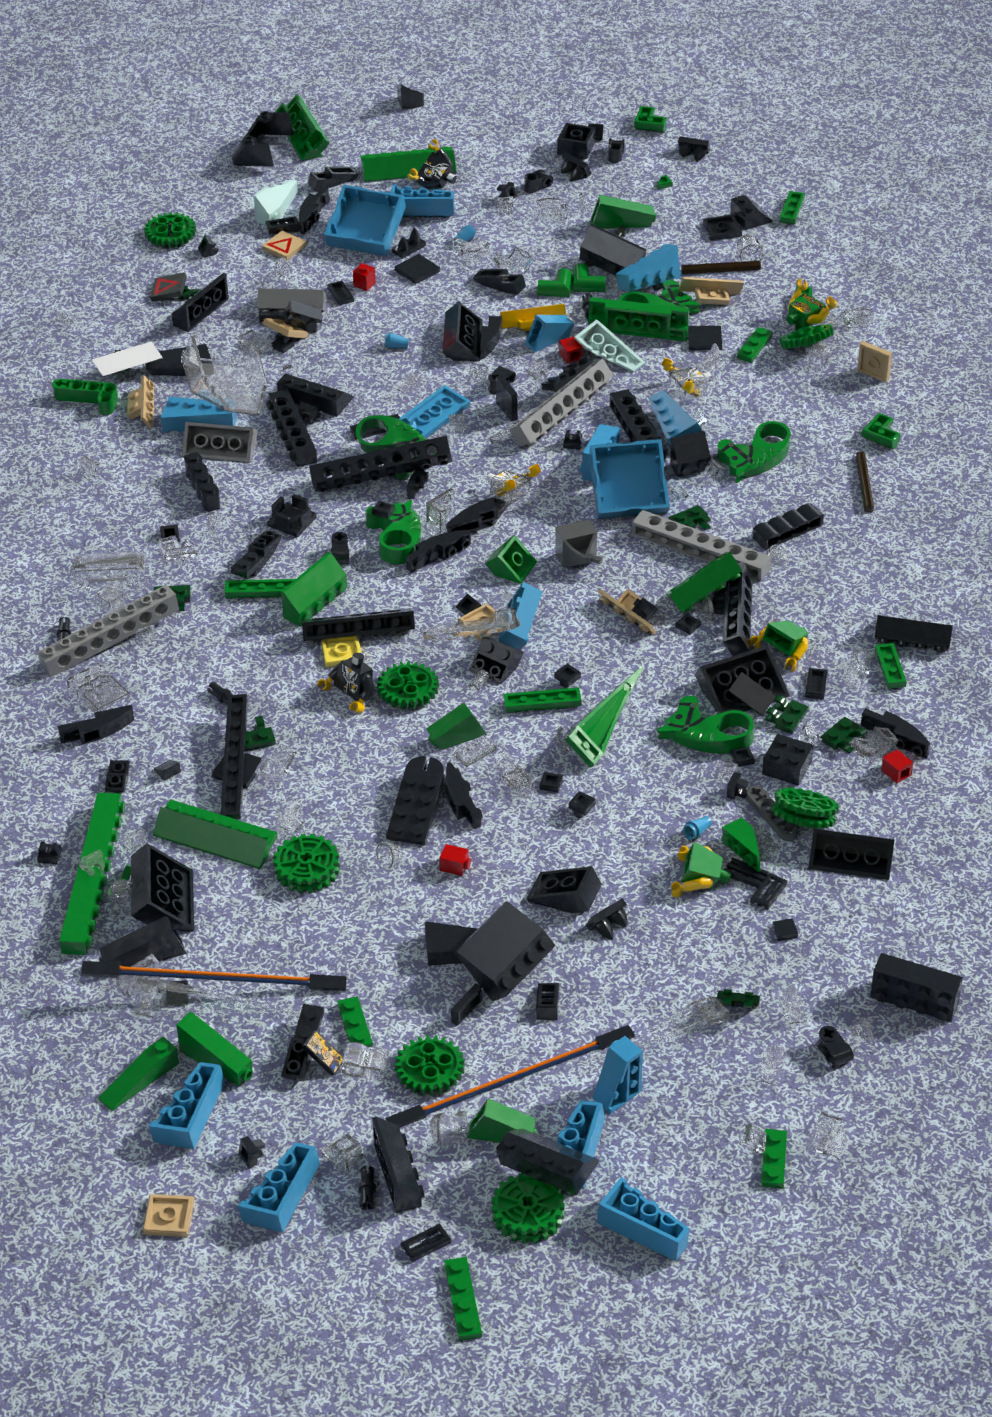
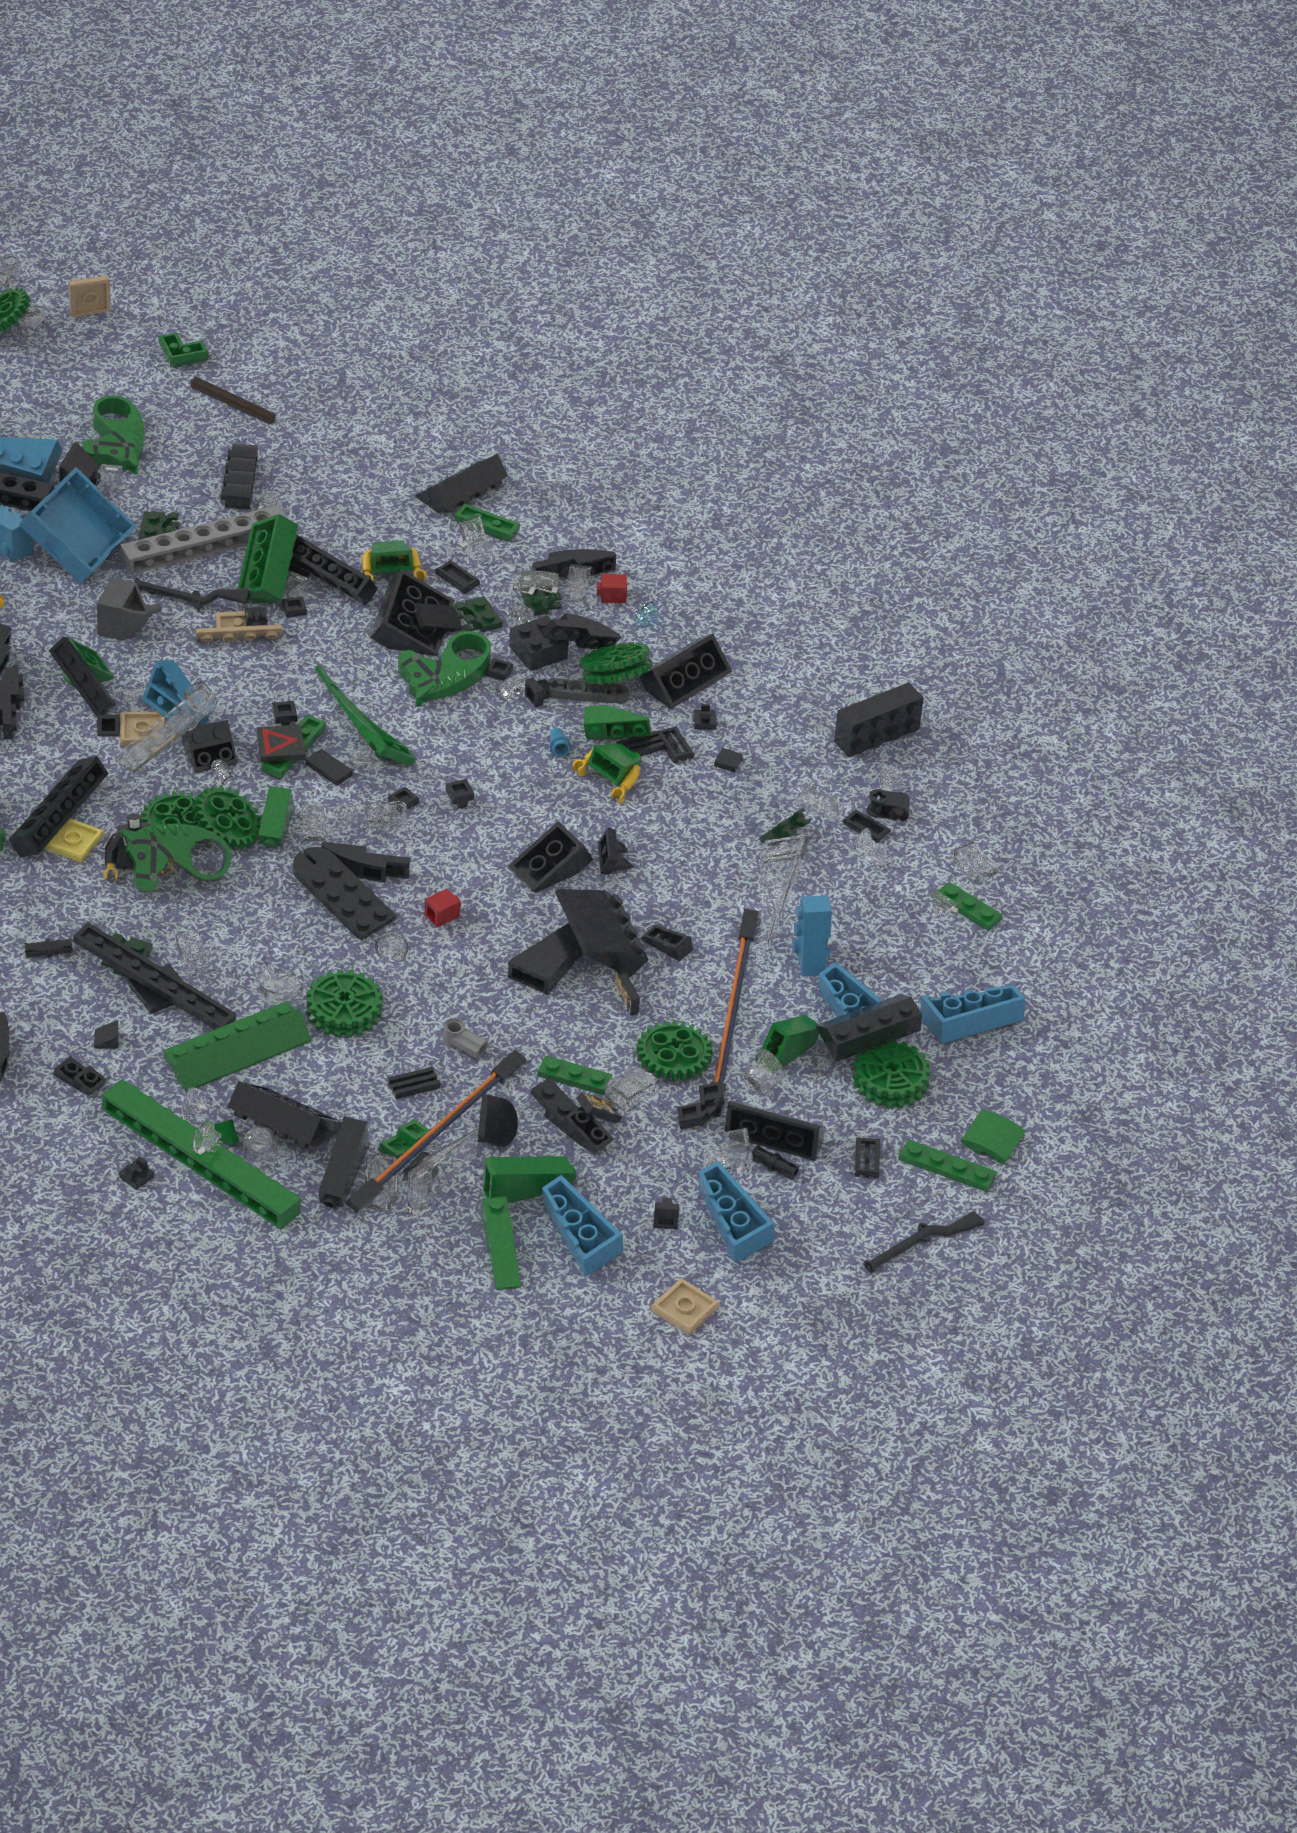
camera: 60 degrees left, 0 degrees up
(209, 965) = (406, 1137): none -> green slope
(253, 1004) = (497, 1121): none -> black tile
(268, 940) = (411, 1081): none -> black tile
(330, 942) = (457, 1036): none -> light grey piece
(361, 690) = (158, 844): none -> green animal
(395, 1113) = (710, 1102): none -> black tile
(407, 1343) = (924, 1231): none -> black piece
(416, 716) = (227, 816): none -> green gear
(488, 564) = (82, 676): none -> black tile
(521, 1310) = (993, 1135): none -> green slope
(531, 689) = (280, 743): none -> pearl dark grey tile
(543, 728) = (329, 767): none -> black tile
(657, 588) = (236, 595): none -> black piece
(799, 1047) = (860, 821): none -> black tile
(815, 892) = (705, 718): none -> black tile
(817, 773) = (582, 630): none -> black slope
(847, 720) = (530, 580): none -> clear slope
(890, 799) = (647, 614): none -> clear light blue tile

